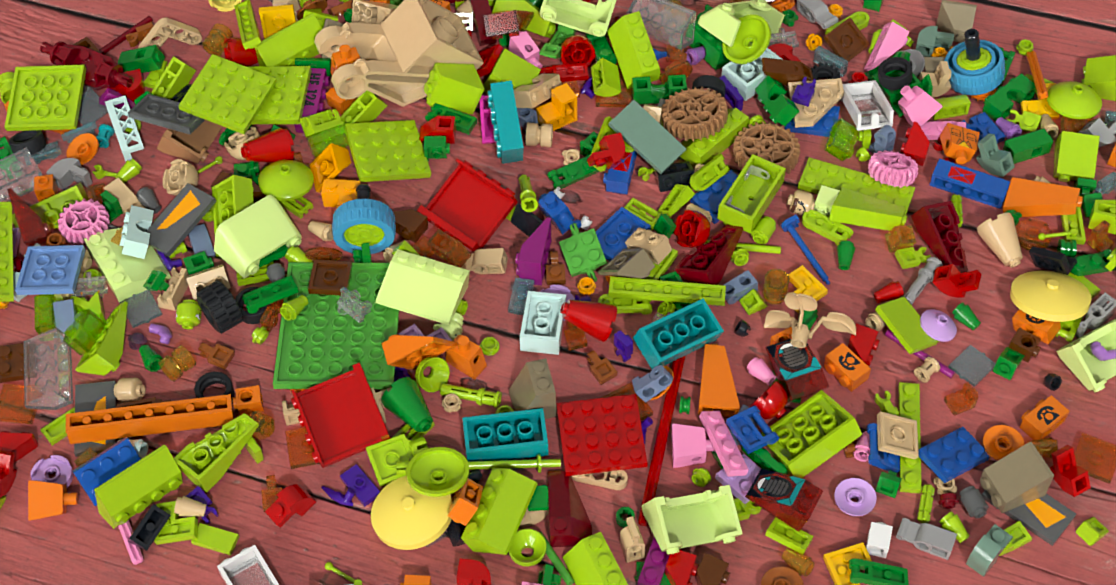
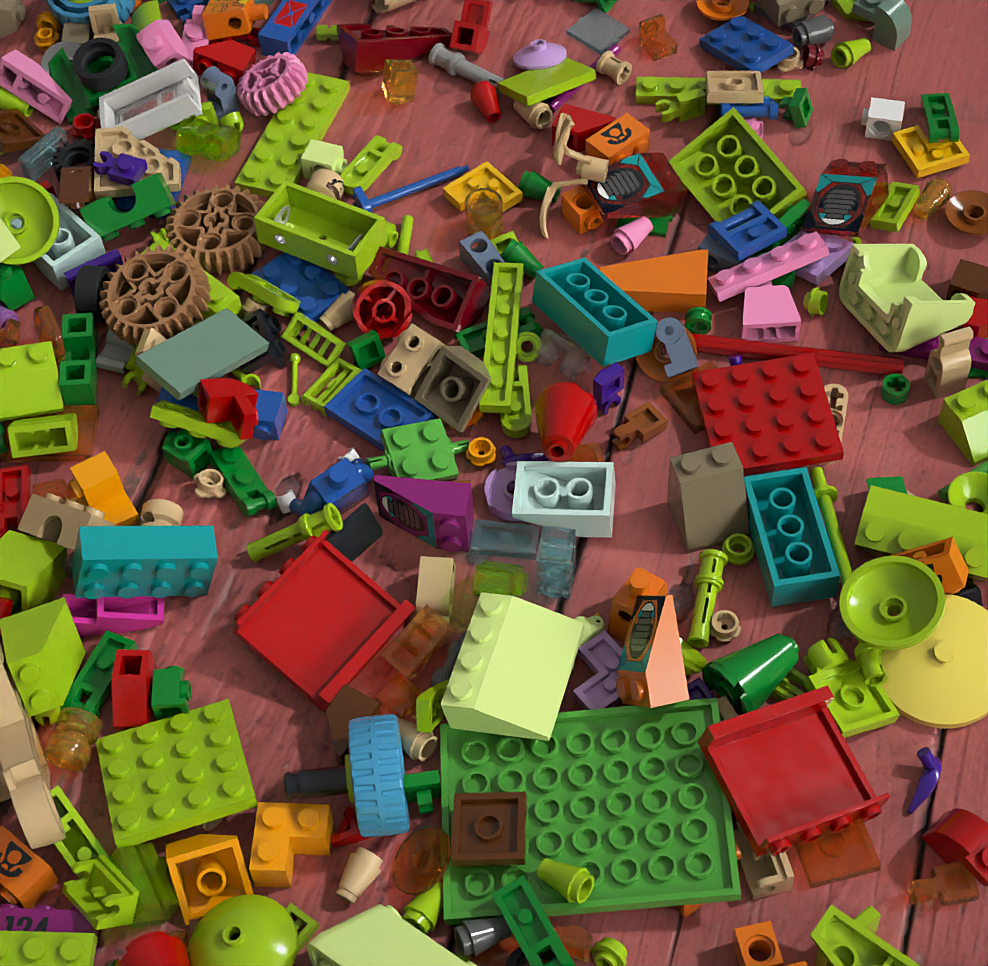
camera: 90 degrees left, 0 degrees up
(266, 424) = (800, 923): clear yellow head -> none
(350, 304) = (556, 779): clear hips -> none
(361, 484) = (898, 750): dark purple plate -> none
(412, 109) = (73, 738): none -> clear yellow wheel
(485, 286) = (500, 579): none -> clear neon green brick
(489, 346) = (606, 580): lime plate -> none
(494, 314) = (556, 562): none -> clear light blue brick
(566, 512) = (917, 456): dark red wedge -> none
(586, 88) = (48, 470): dark purple bar -> none
(634, 195) = (293, 399): none -> lime hinge
(738, 307) = (519, 253): none -> green cone
(741, 328) = (550, 254): black hinge -> none
(772, 401) = (684, 221): red cylinder -> none
(845, 254) = (421, 145): green cone -> none
(855, 489) = (825, 139): lavender dish -> none
(866, 211) = (348, 114): lime slope -> none
(910, 258) = (428, 79): lime plate -> none
(925, 503) = (820, 78): lime axle -> none
(927, 537) = (872, 73): light grey piece -> none
(931, 38) = (24, 38): sand green brick -> none
(966, 316) = (522, 29): green cone -> none

